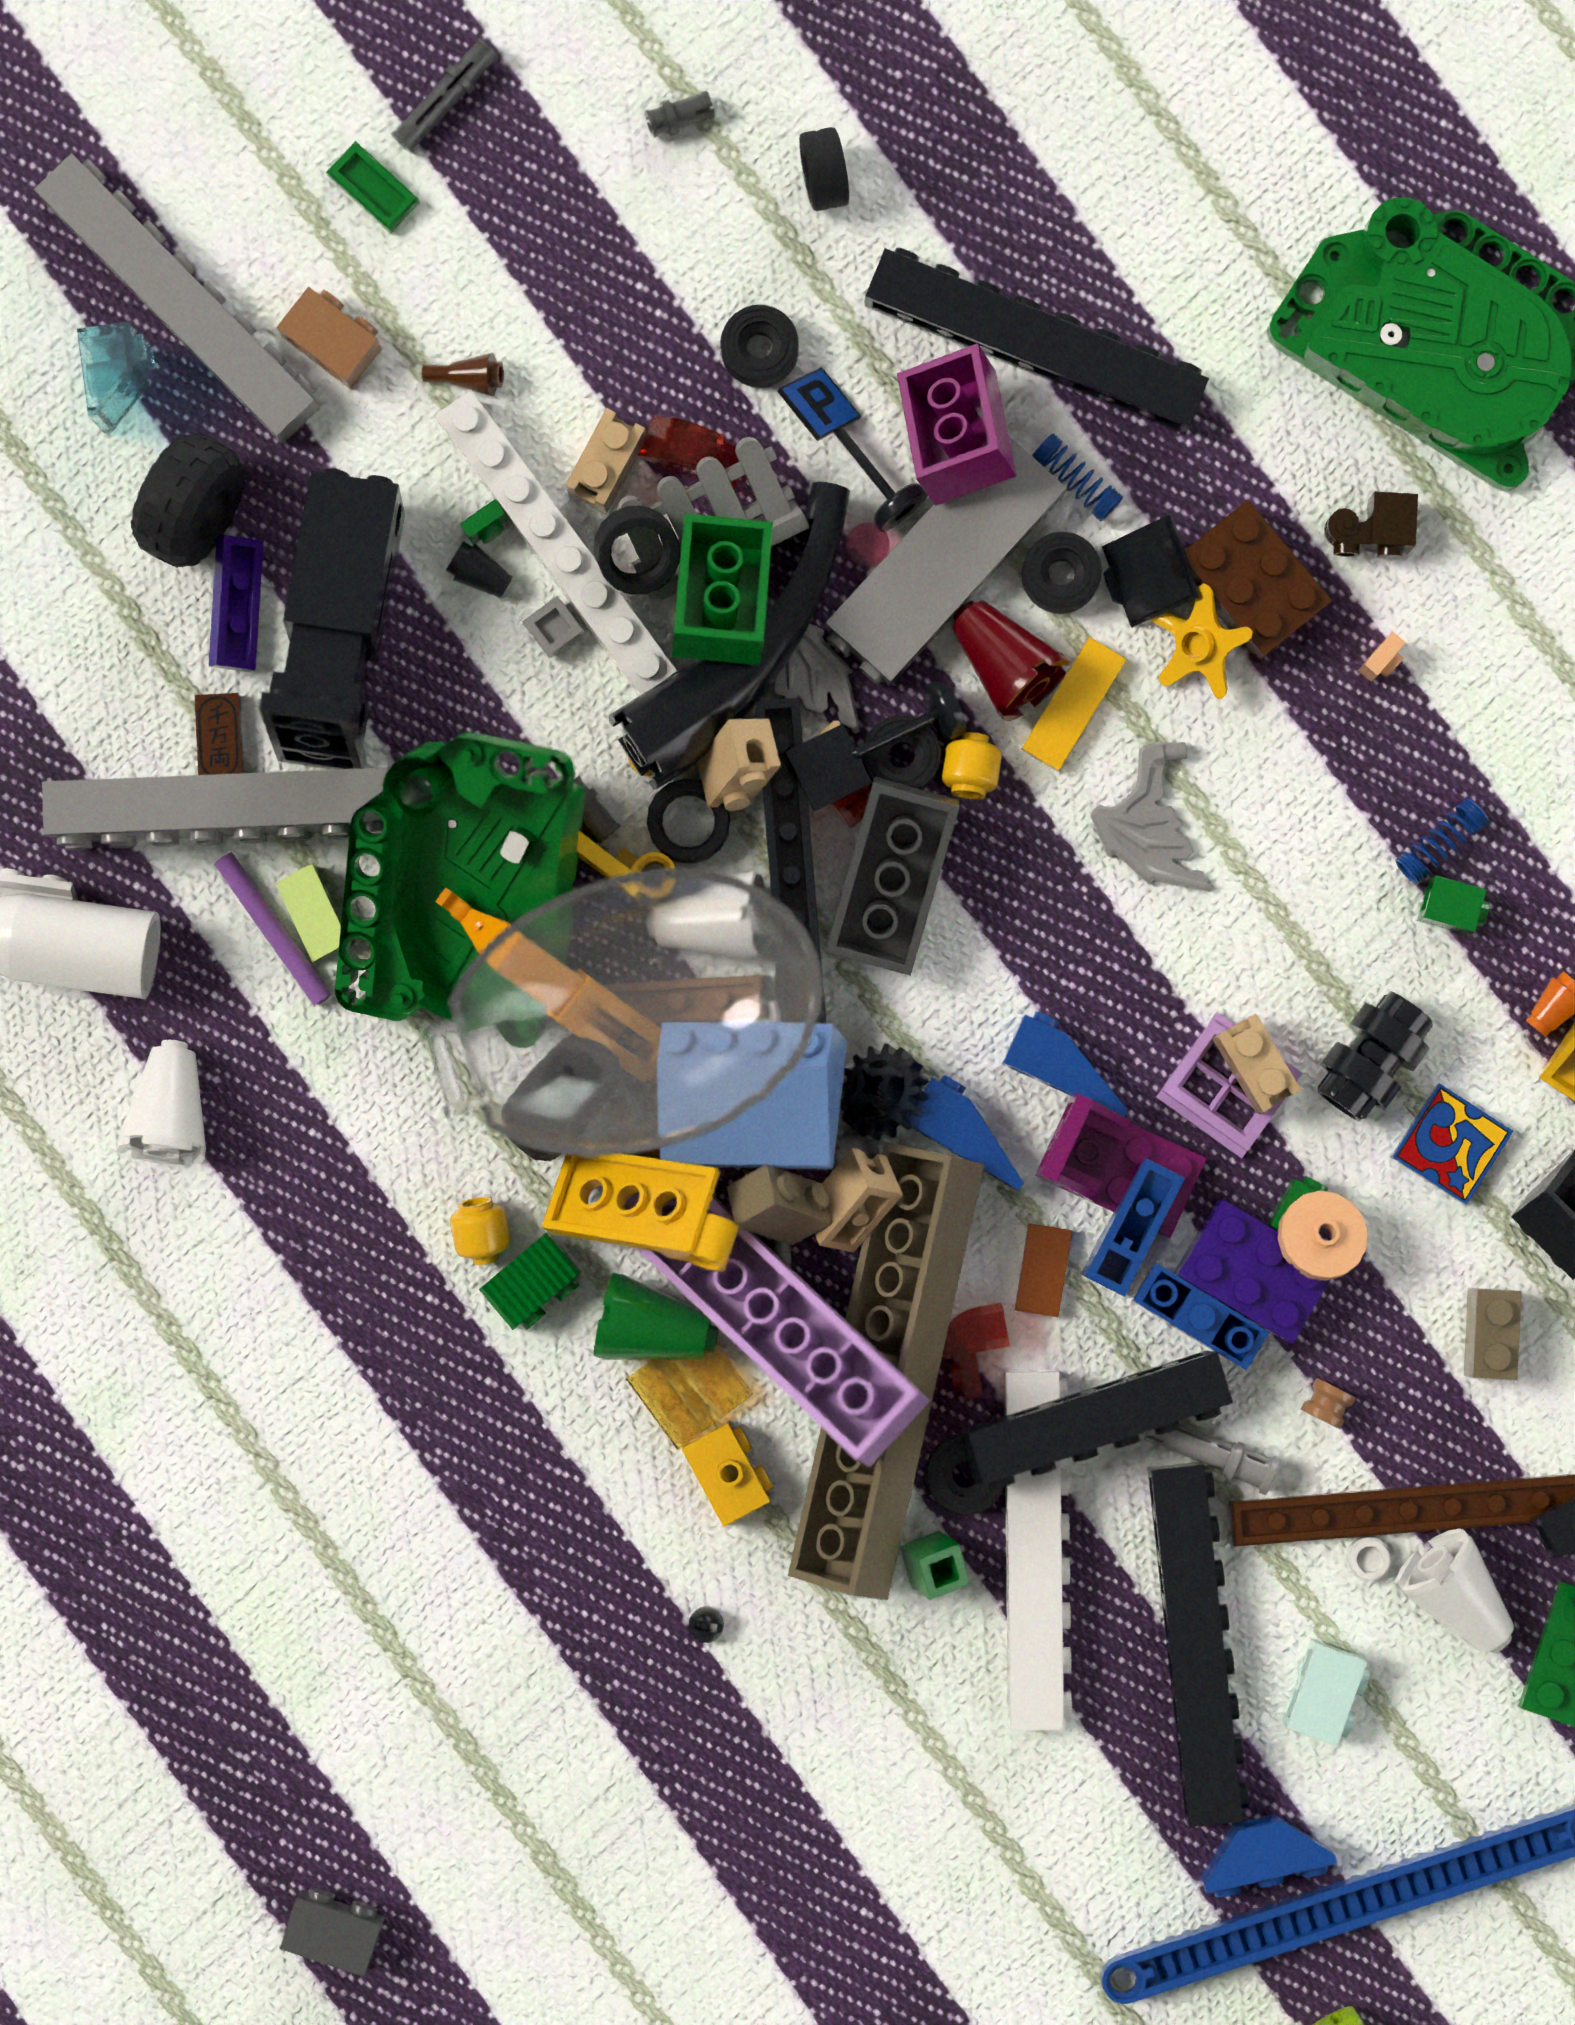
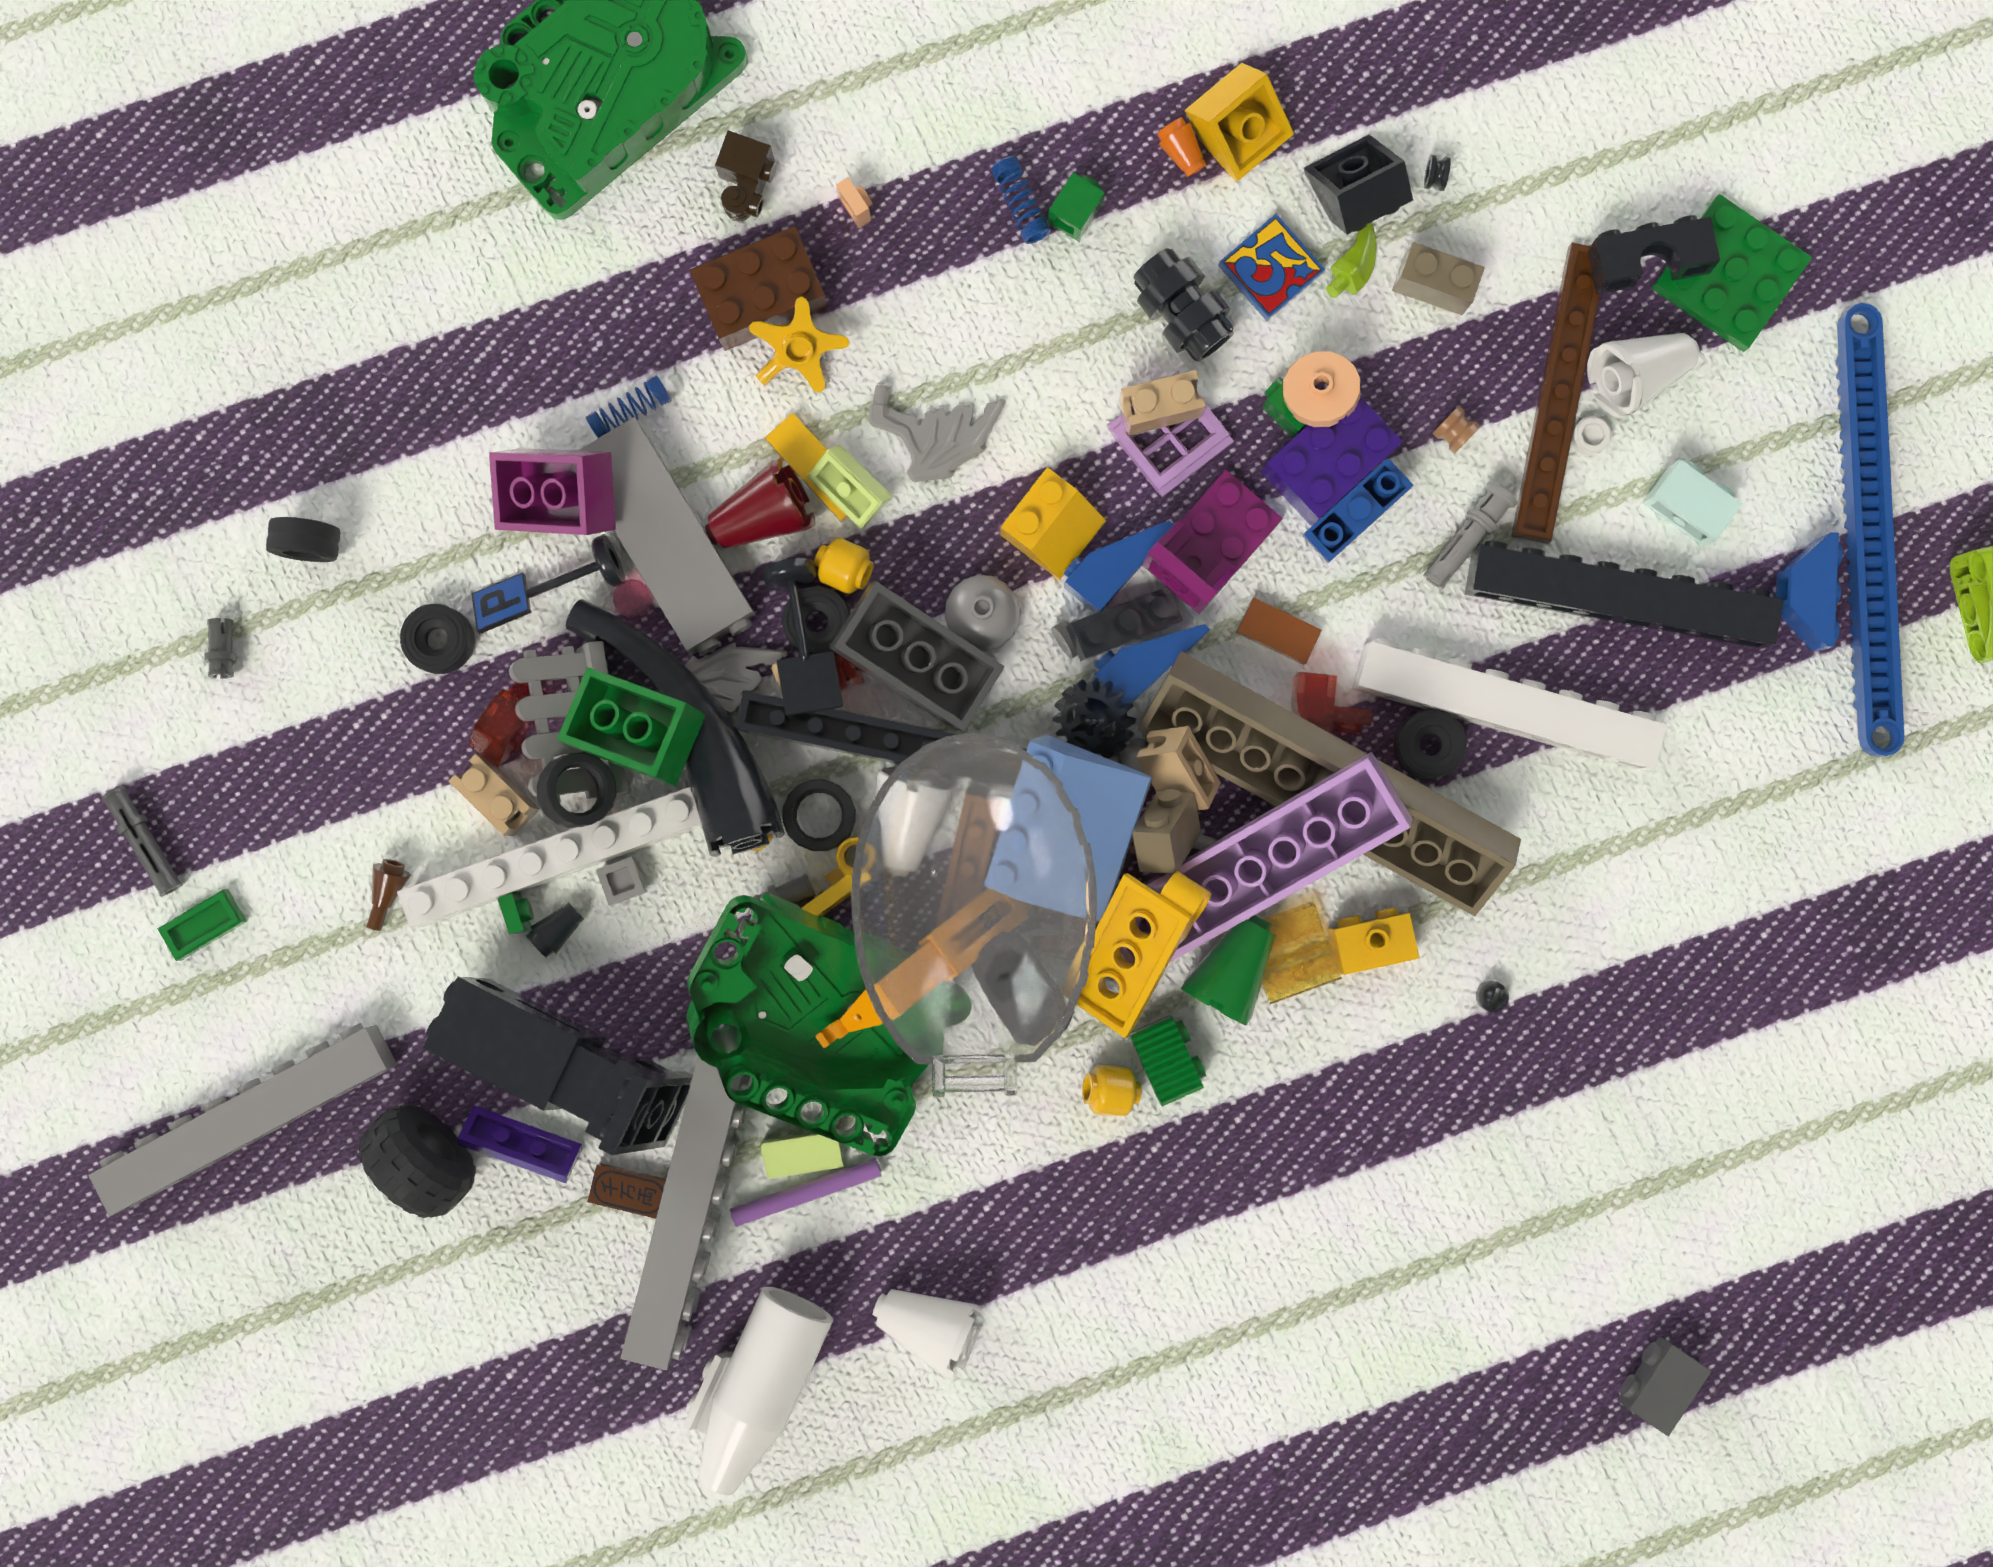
camera: 75 degrees left, 0 degrees up
(113, 370) = (287, 1193): clear light blue slope -> none
(329, 336) = (316, 998): medium nougat brick -> none
(738, 763) = (783, 756): tan brick -> none
(934, 1565) = (1500, 791): green brick -> none
(964, 1037) = (1063, 638): none -> dark grey tile
(966, 934) = (983, 612): none -> light grey cylinder
(999, 1094) = (1124, 623): none -> black plate
(1036, 340) = (503, 407): black brick -> none
(1062, 746) = (849, 485): none -> yellowish green slope
(1067, 548) = (699, 423): black tyre -> none
(1087, 983) = (1052, 524): none -> yellow slope
(1095, 1418) = (1419, 621): black brick -> none
(1132, 1227) = (1268, 545): blue slope -> none
(1149, 571) = (725, 370): black piece -> none
(1481, 1238) = (1355, 266): none -> lime bar

